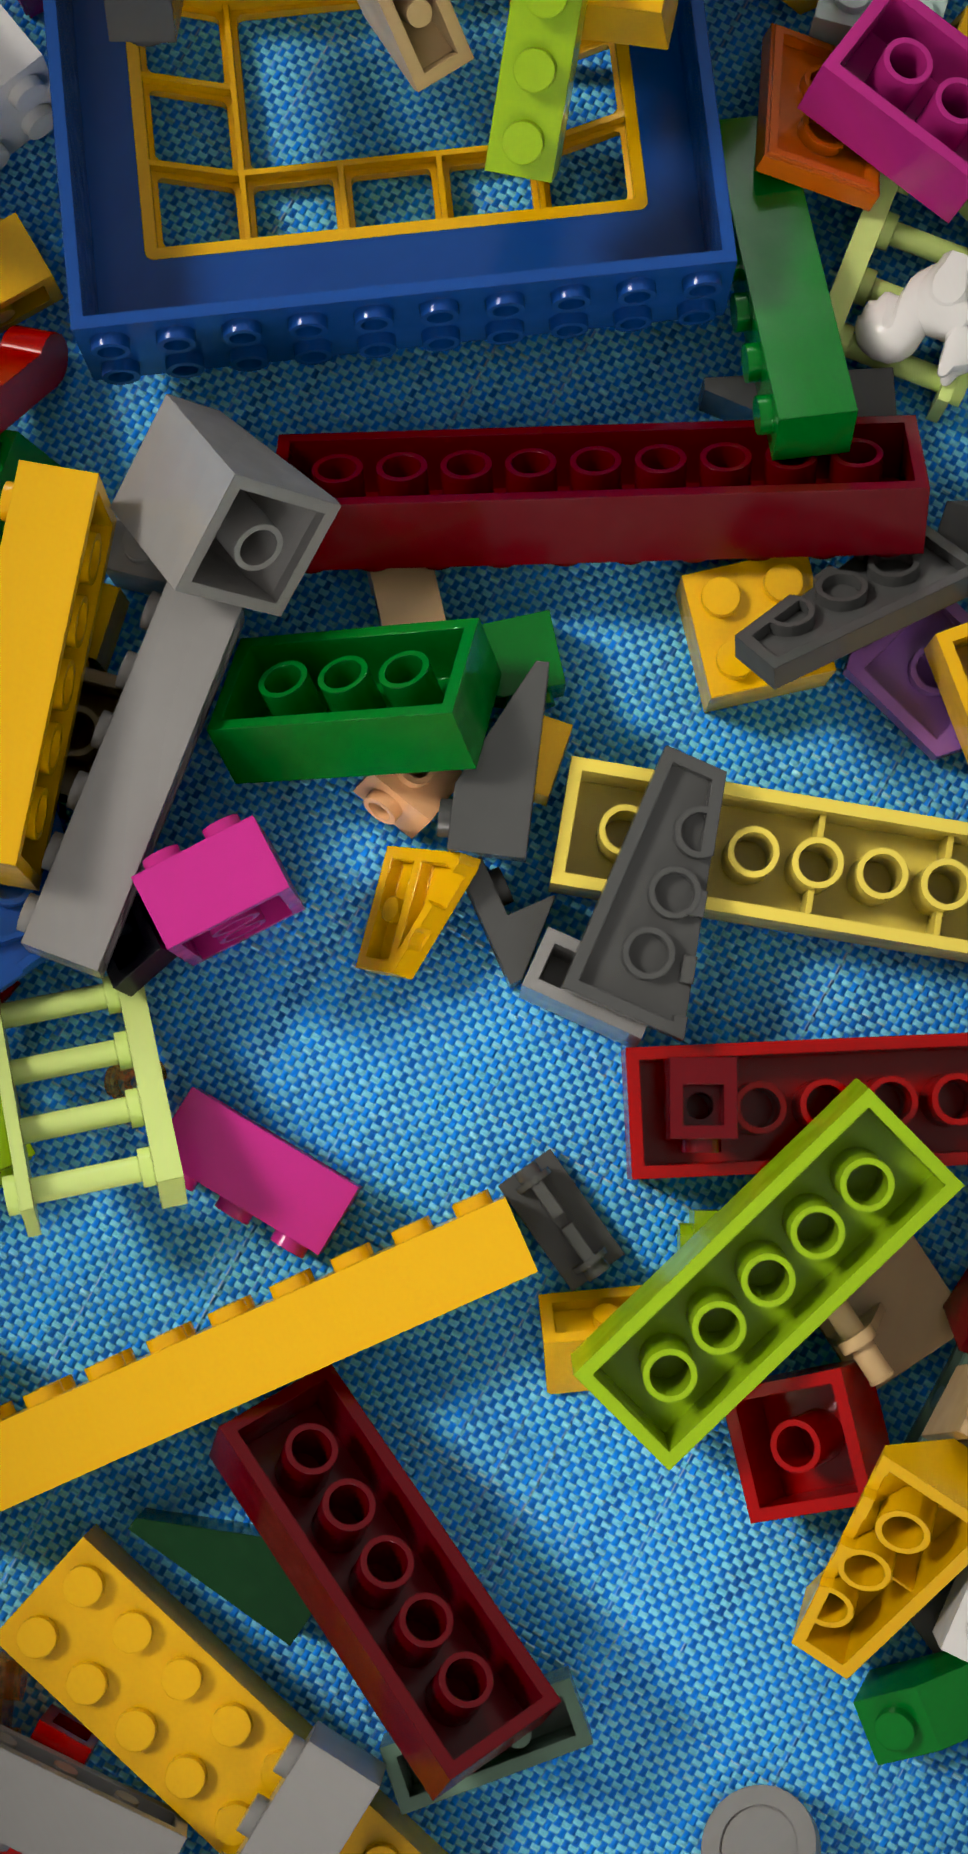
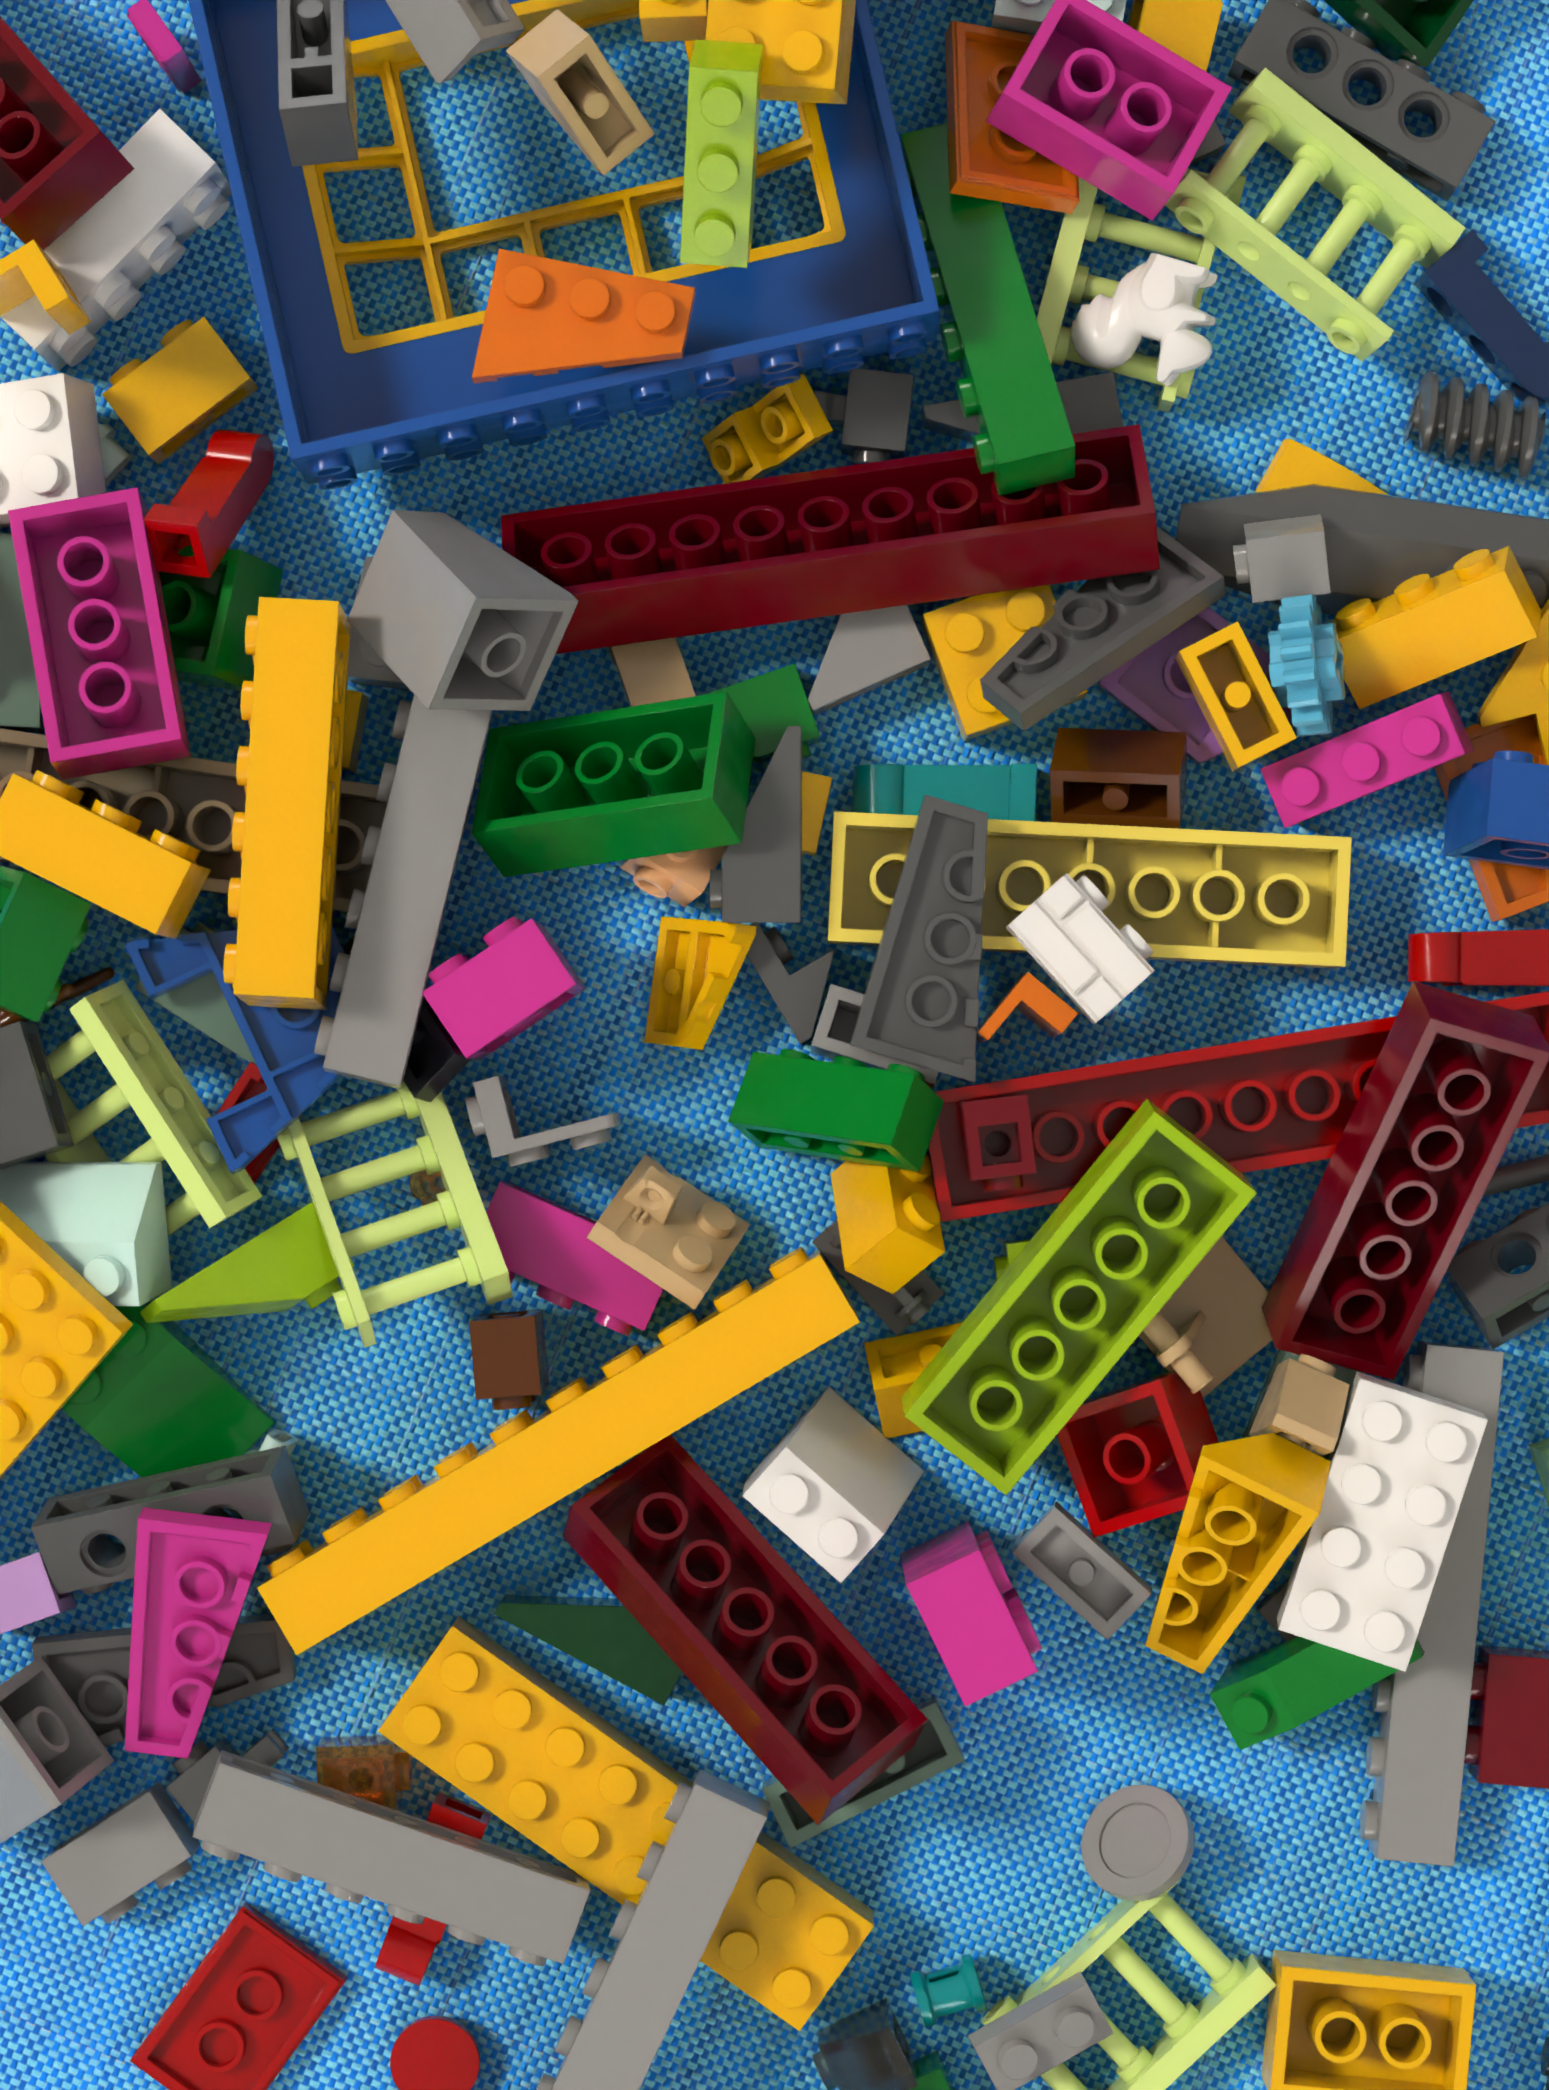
camera: 10 degrees left, 5 degrees up
(177, 1266) = (509, 1357): none -> reddish brown brick
(195, 1020) = (494, 1115): none -> light grey bracket
(355, 1157) = (669, 1231): none -> tan hinge
(372, 220) = (573, 316): none -> orange wing
(490, 1437) = (833, 1484): none -> white slope
(541, 1053) = (837, 1109): none -> green brick
(551, 388) = (767, 433): none -> yellow slope
(578, 1164) = (887, 1222): none -> yellow brick
(620, 1592) = (971, 1611): none -> dark pink brick
(622, 612) = (866, 654): none -> light grey slope
(638, 744) = (999, 790): none -> teal leg
(650, 385) = (871, 414): none -> dark grey brick
(734, 1556) = (1081, 1570): none -> light grey panel
(751, 972) = (1035, 1003): none -> orange panel
(807, 915) = (1082, 946): none -> white brick
(857, 758) = (1119, 777): none -> reddish brown brick

